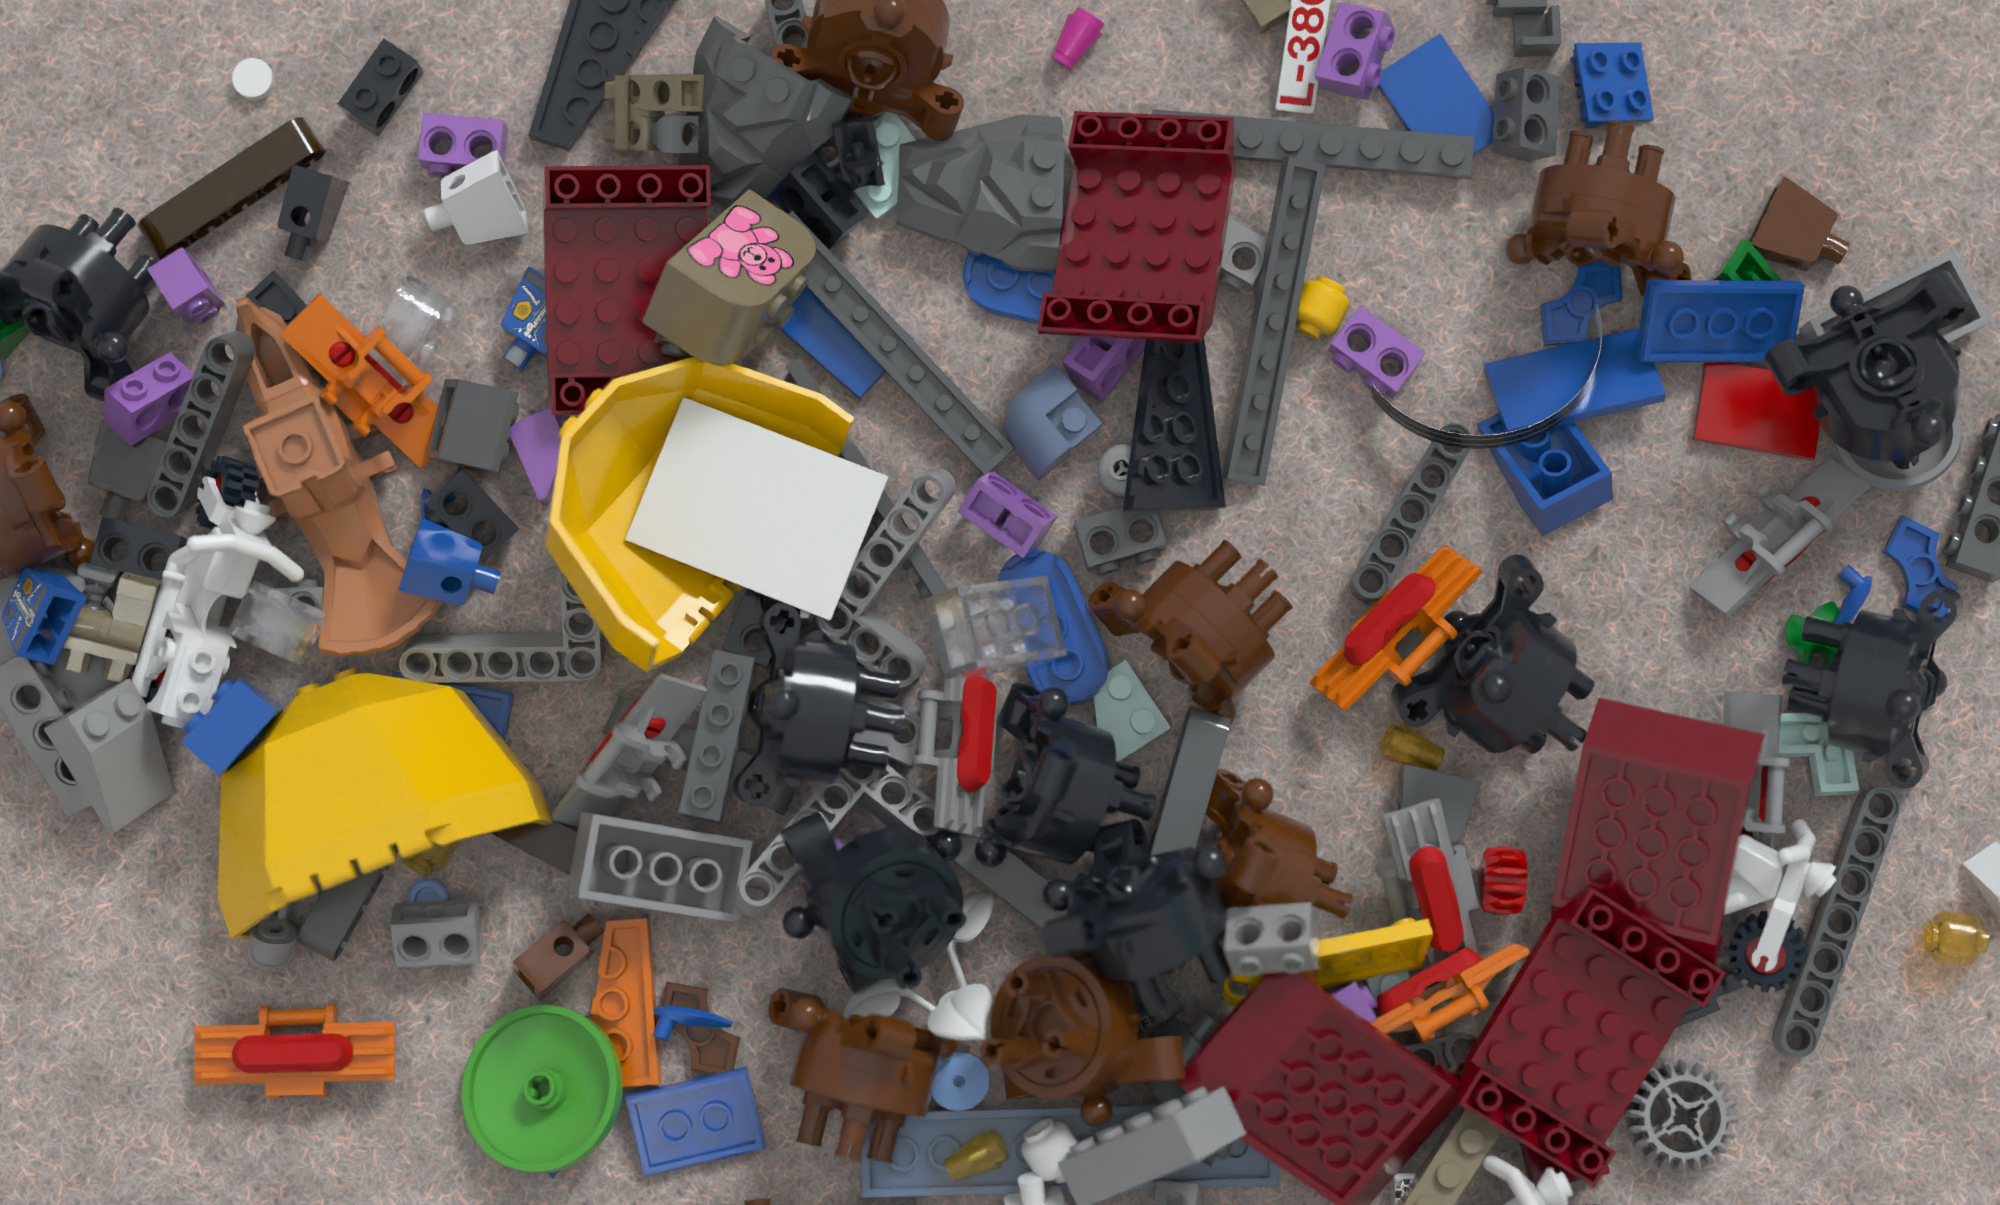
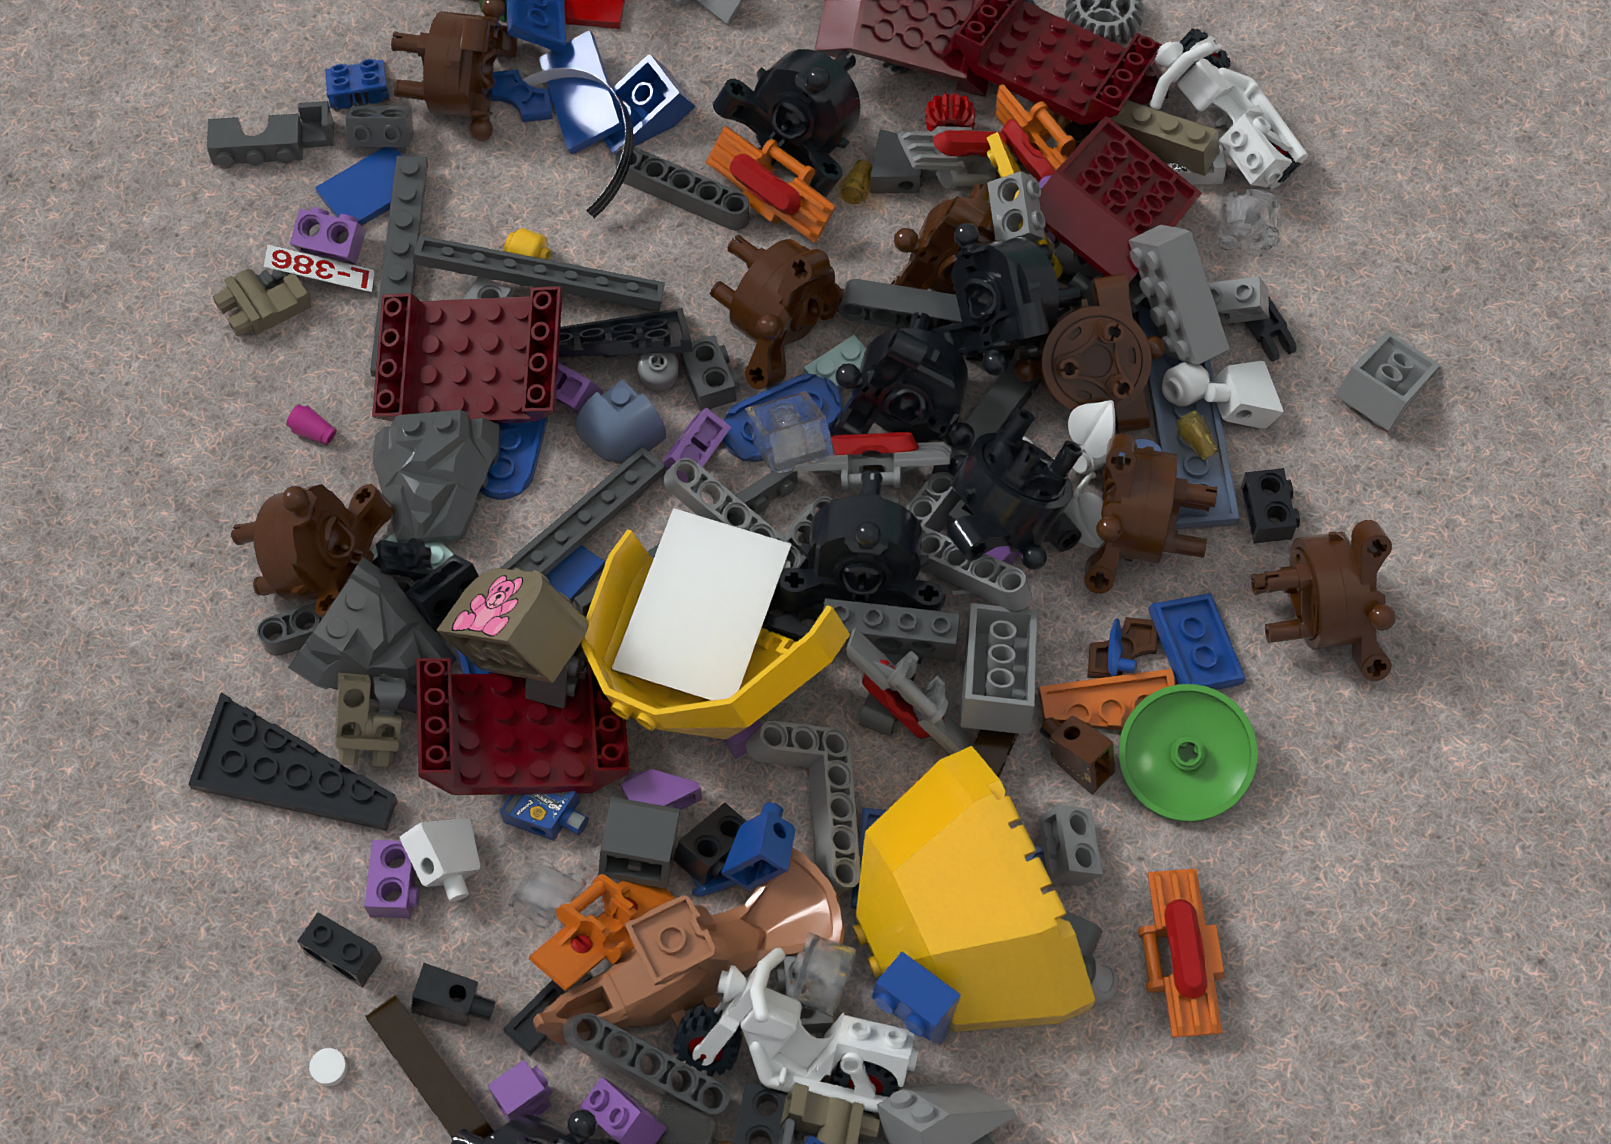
camera: 90 degrees left, 20 degrees down
(1382, 344) = (555, 212): medium lavender brick -> none

